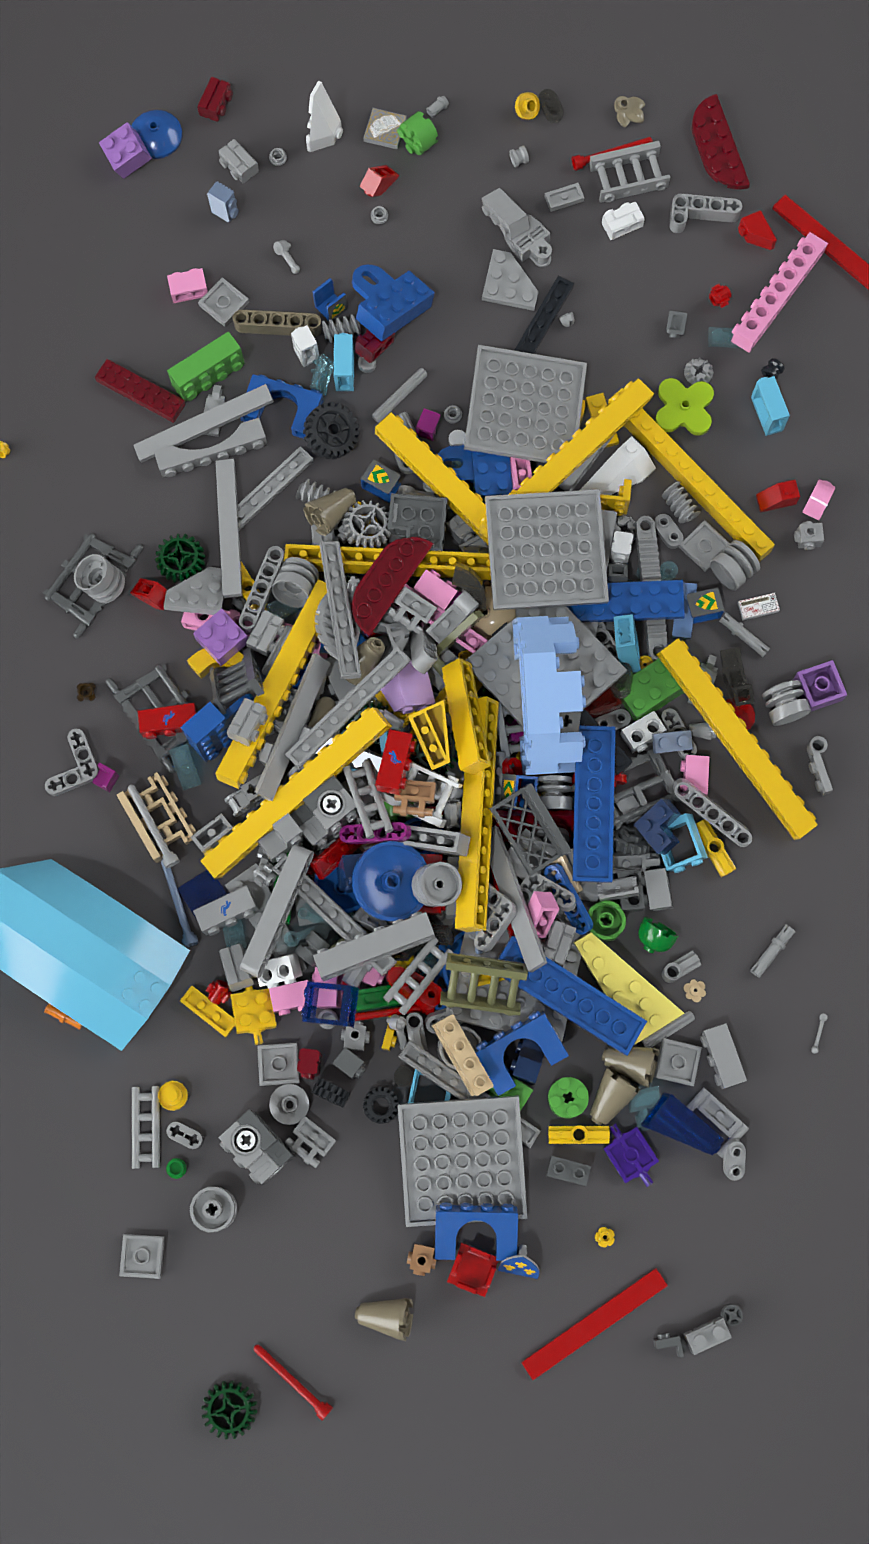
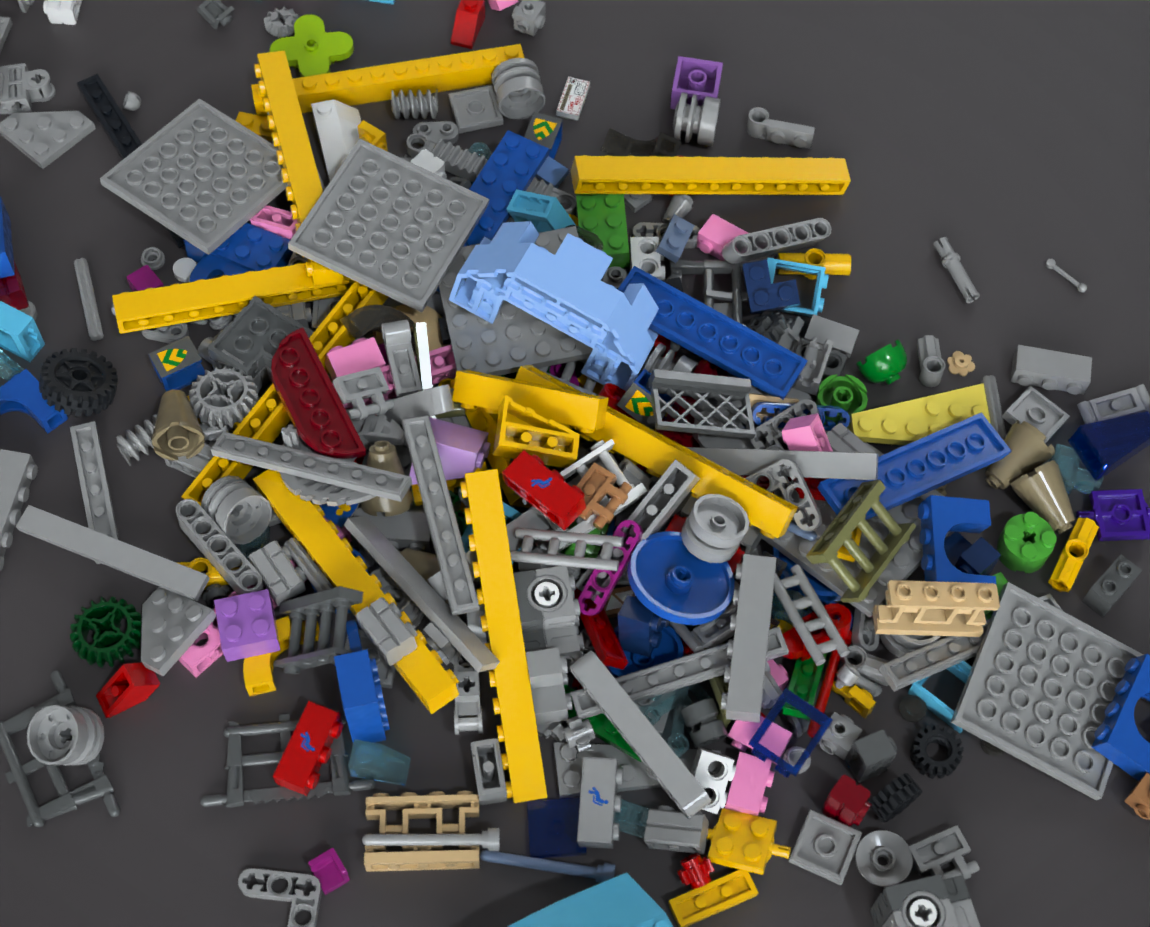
camera: 65 degrees left, 15 degrees down
(81, 688) = (197, 830): dark brown plate -> none
(744, 634) = (586, 126): light grey pin -> none

